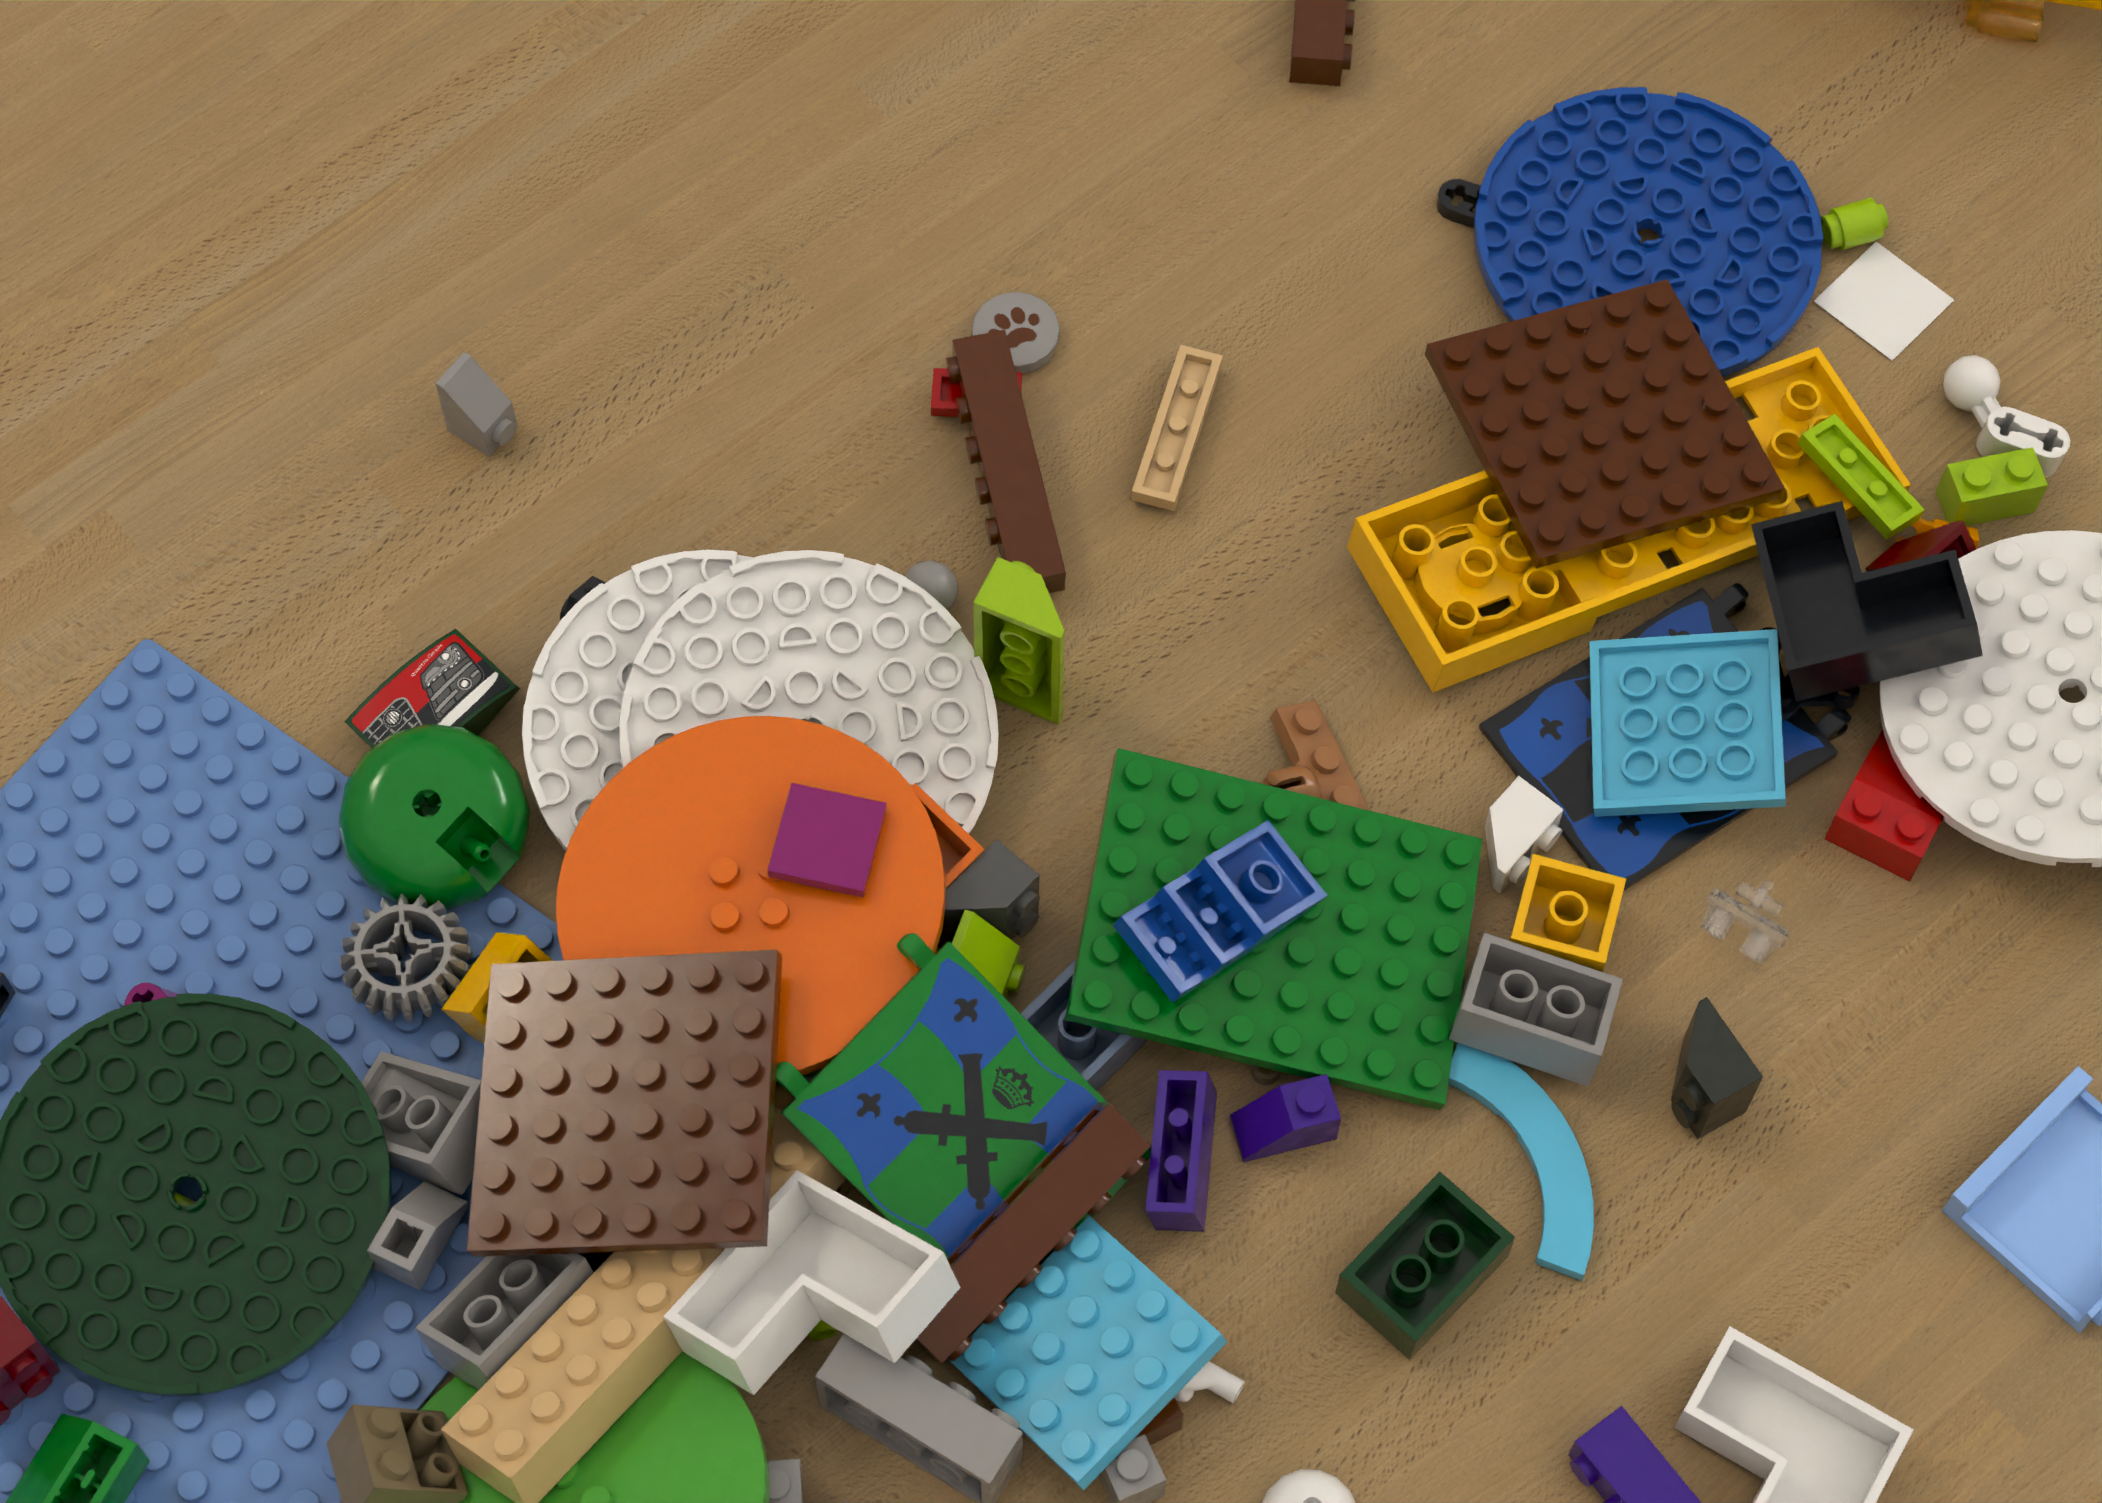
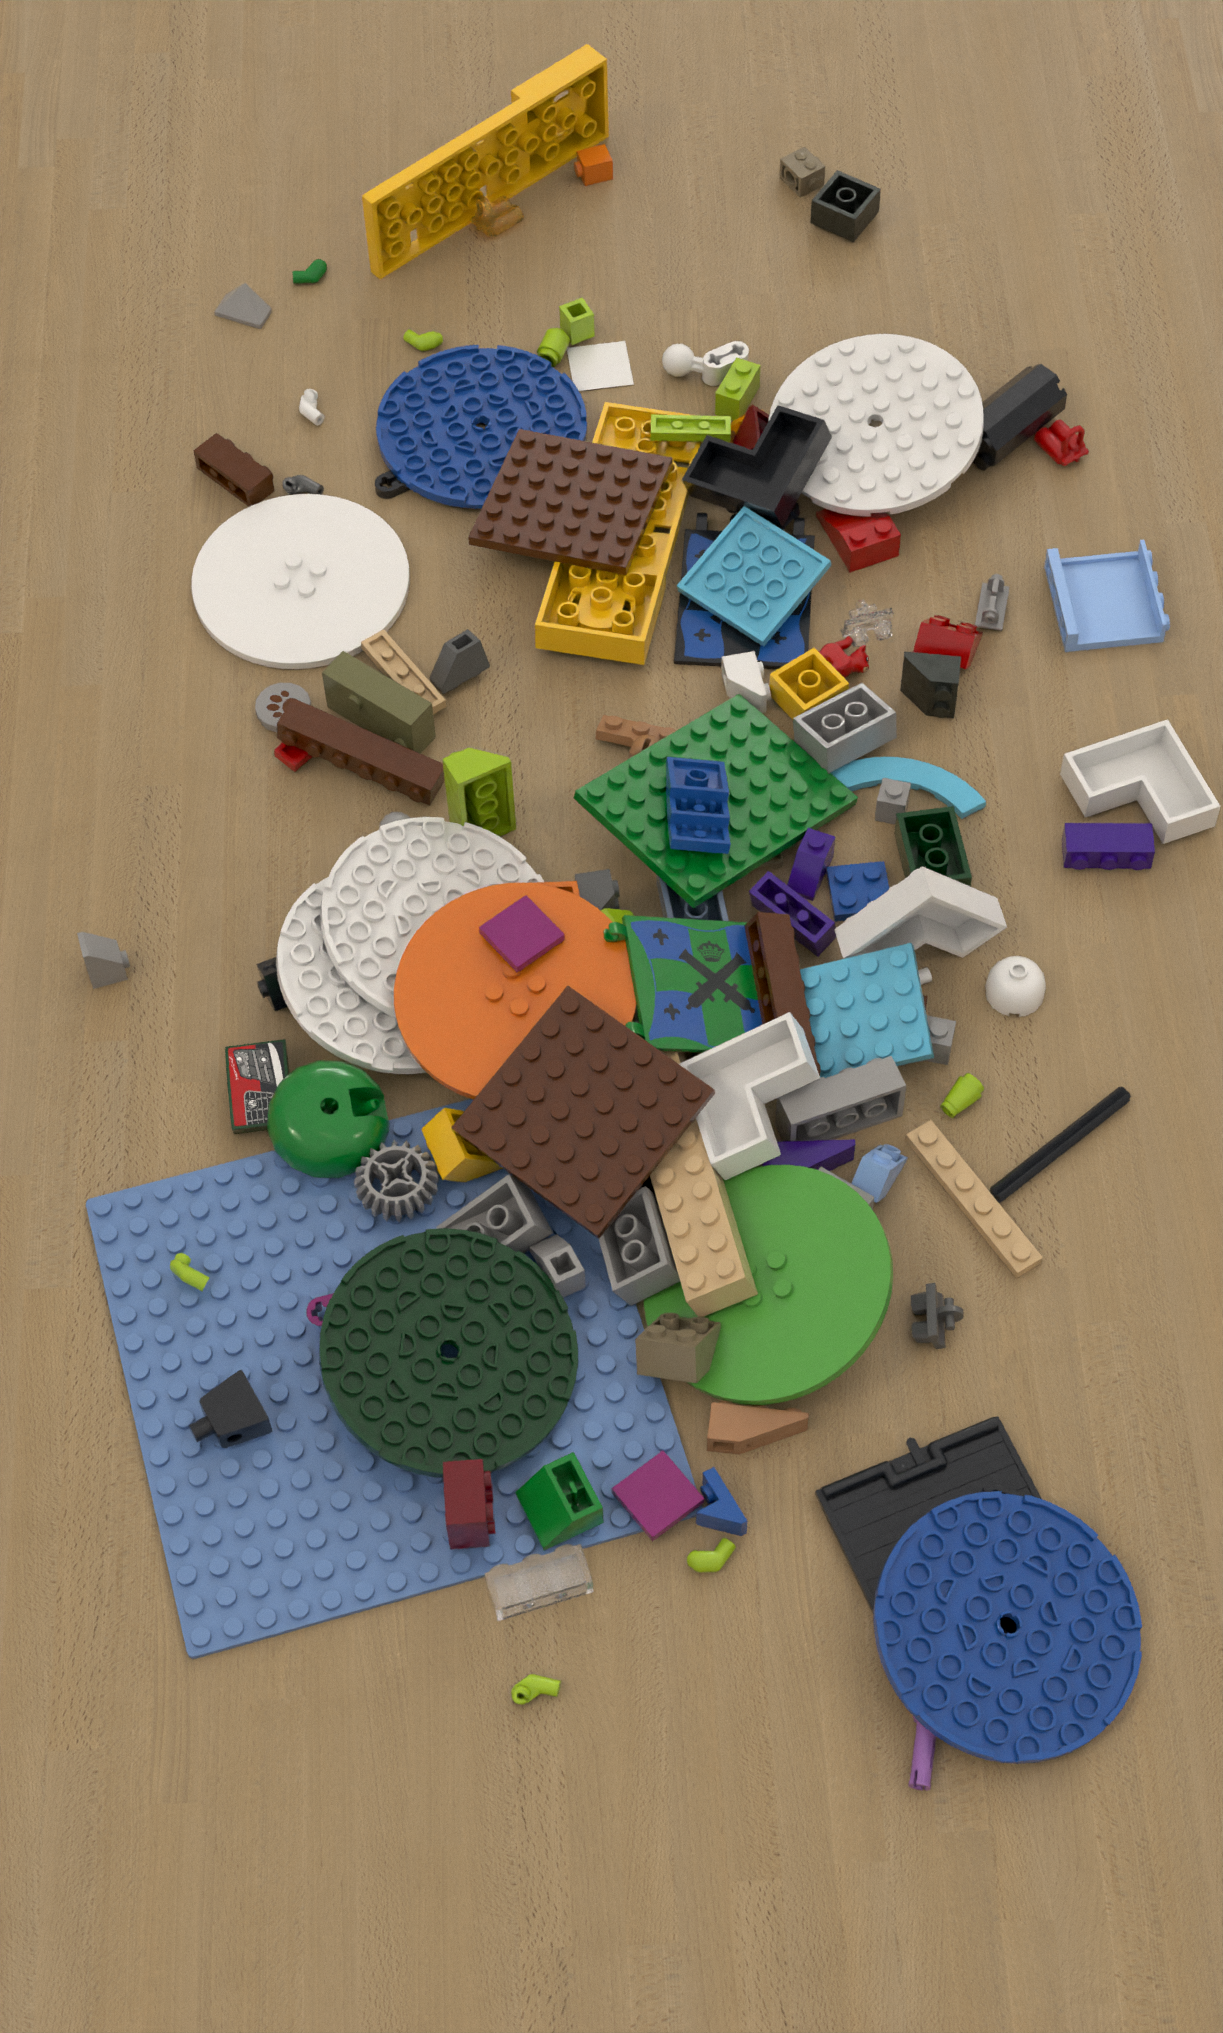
camera: 50 degrees left, 5 degrees down
(108, 818) = (187, 1274): none -> lime arm
(803, 1427) = (815, 1153): none -> dark purple slope
(1091, 433) = (378, 703): none -> olive brick
(1224, 214) = (300, 580): none -> white plate
(1244, 475) = (458, 662): none -> dark grey slope
(1288, 1320) = (923, 911): none -> white piece
(1302, 1210) = (855, 886): none -> blue plate
(1370, 106) = (301, 484): none -> dark grey arm
(1475, 1153) = (892, 799): none -> light grey brick
(1499, 26) = (308, 407): none -> white arm
(1647, 932) = (845, 664): none -> red animal
(1724, 76) = (424, 341): none -> lime arm
(1808, 1043) = (943, 638): none -> red slope
(1916, 220) = (577, 320): none -> lime brick
(1930, 1059) = (992, 603): none -> light grey hinge

